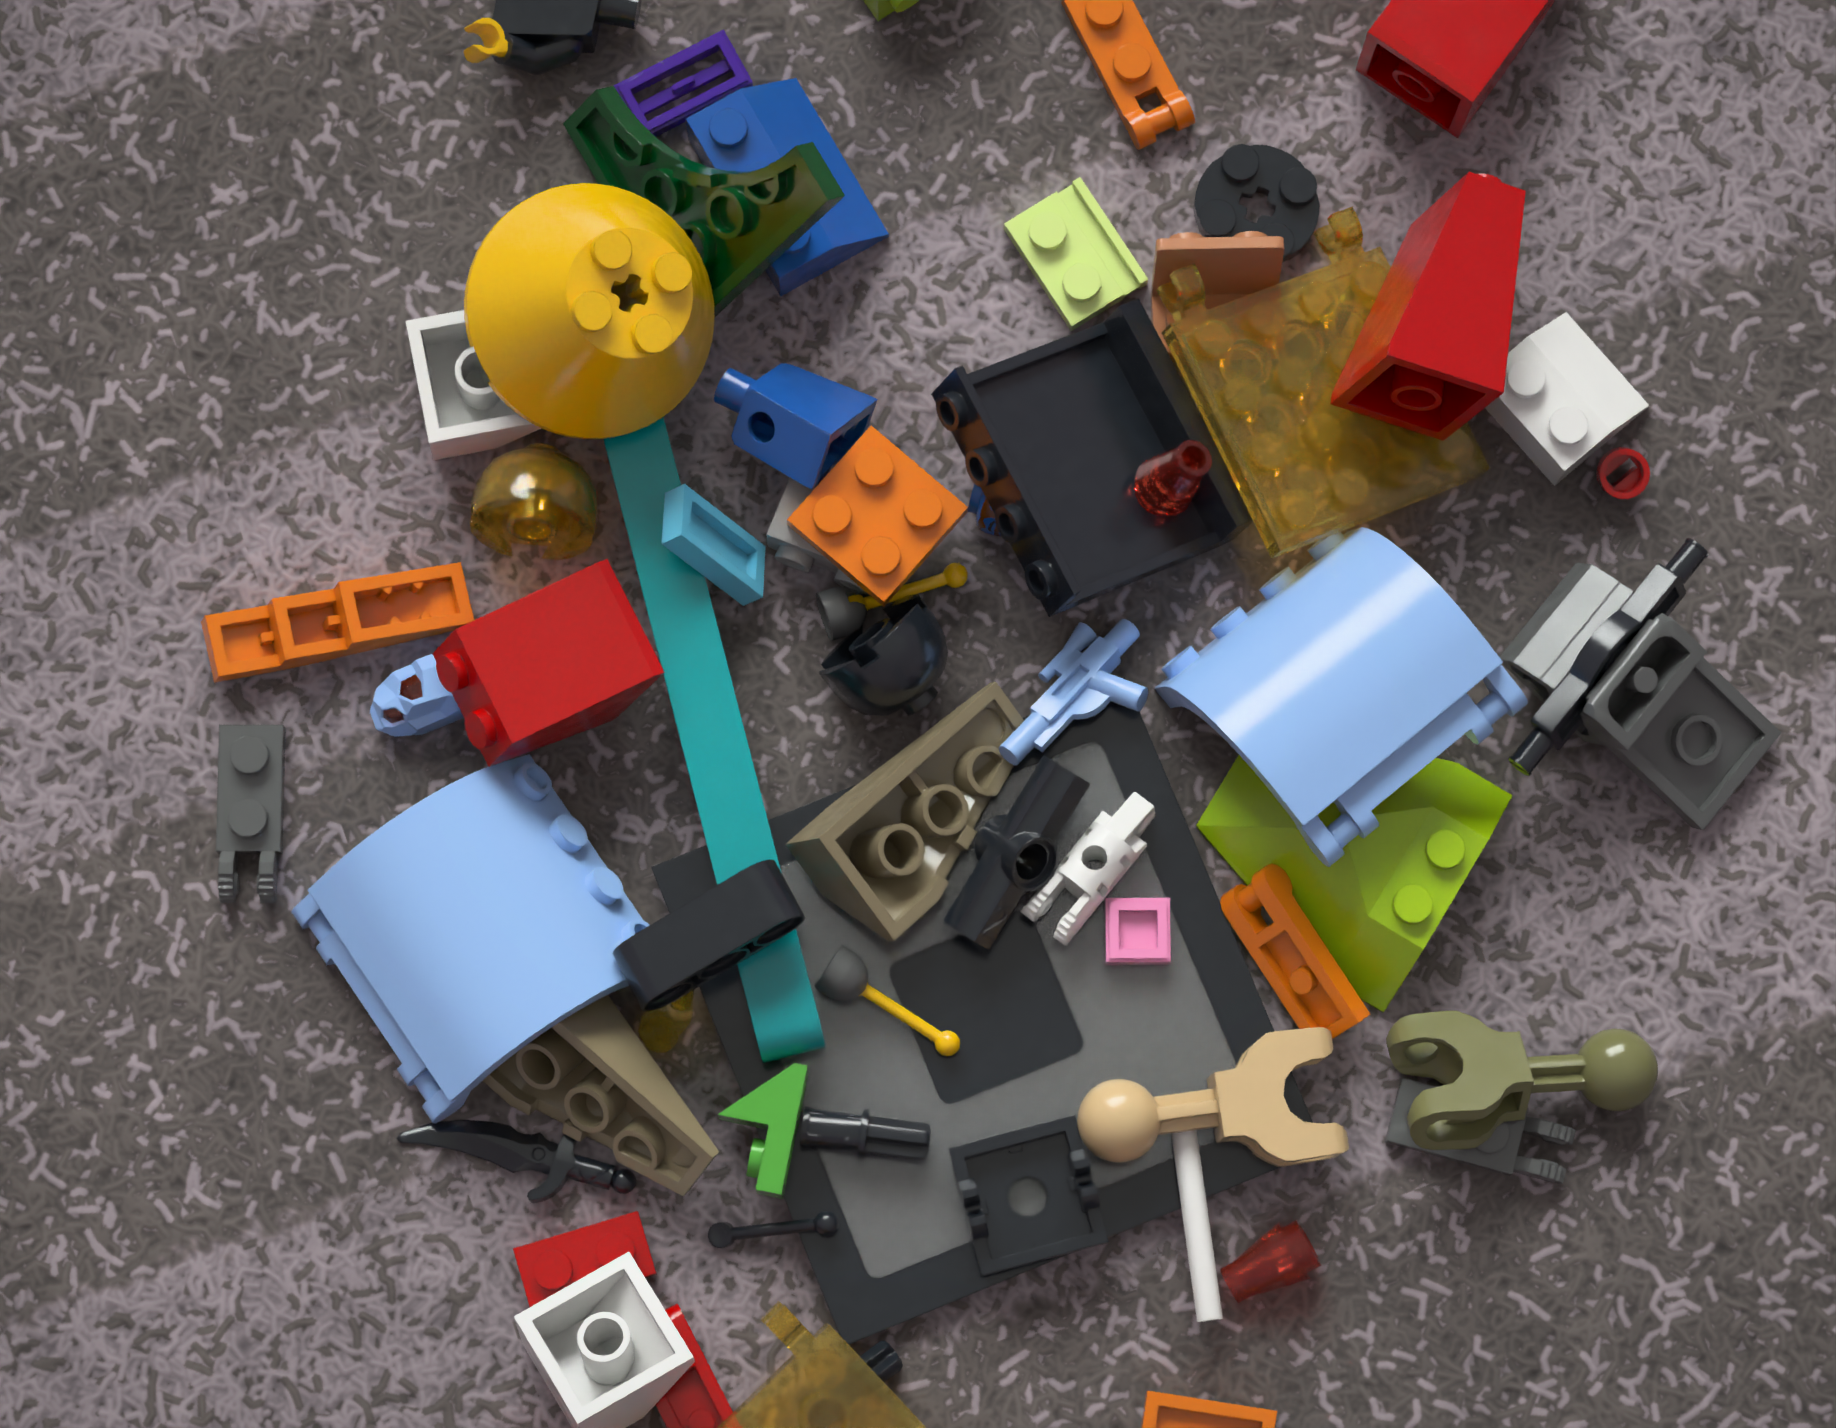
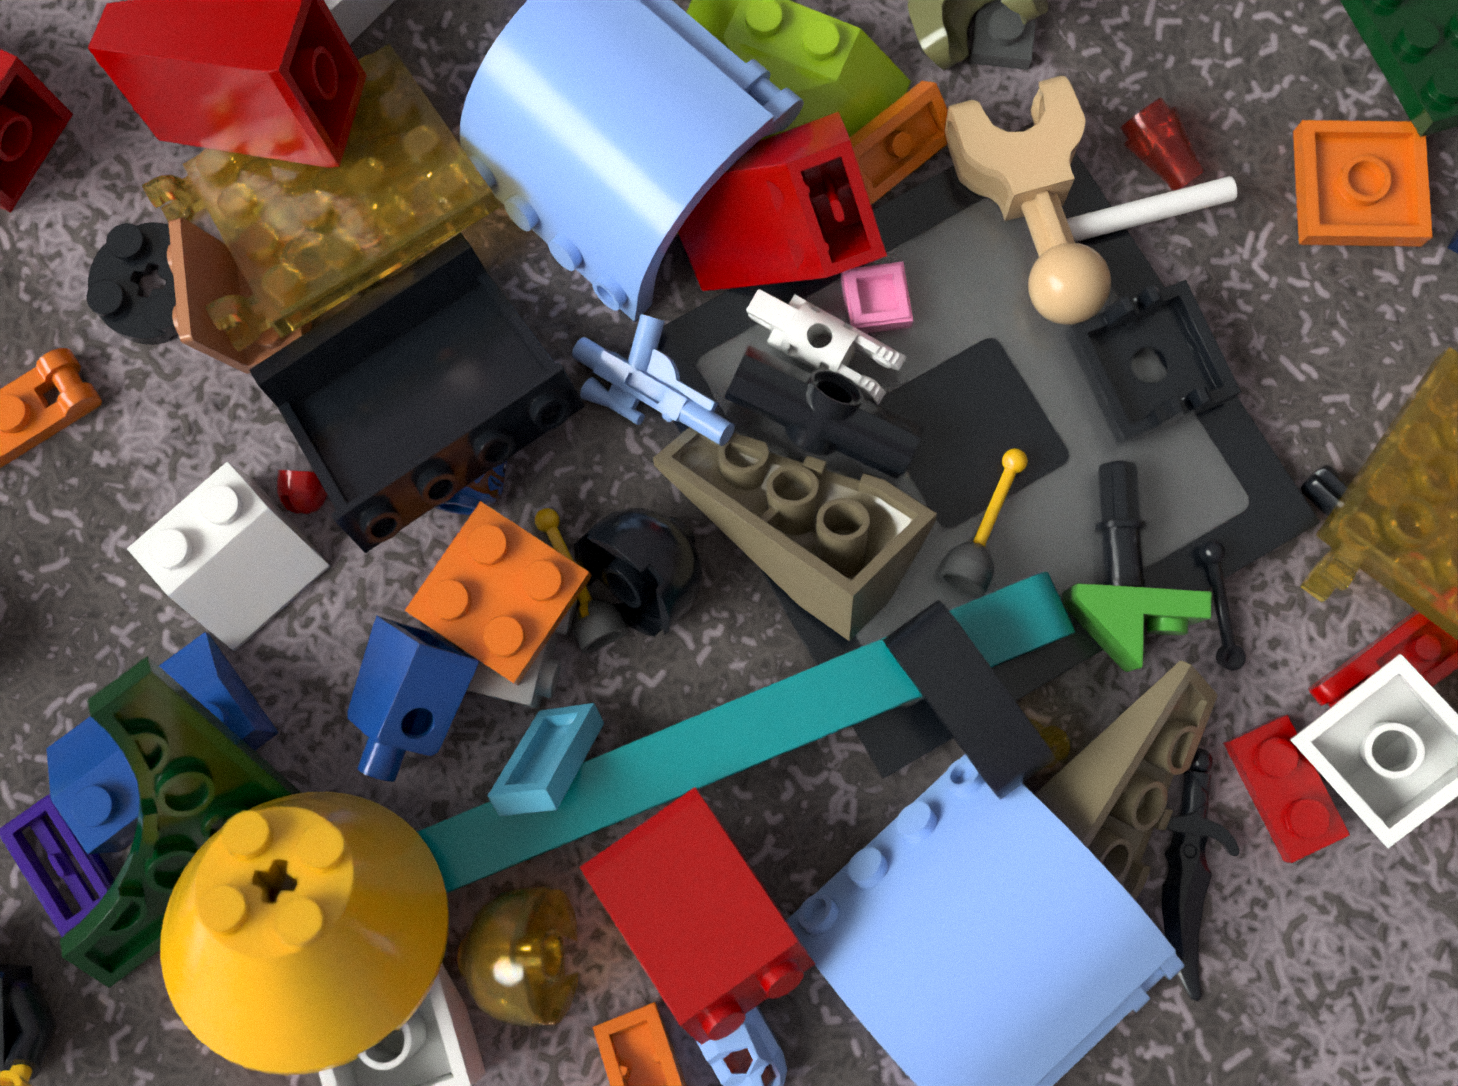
camera: 90 degrees left, 0 degrees up
(956, 266) = (229, 556): none -> white slope
(1016, 335) = (300, 491): none -> red hinge
(1075, 254) = (210, 431): yellowish green plate -> none
(1171, 479) = (429, 313): clear red cone -> none
(1224, 848) = (785, 213): none -> red slope

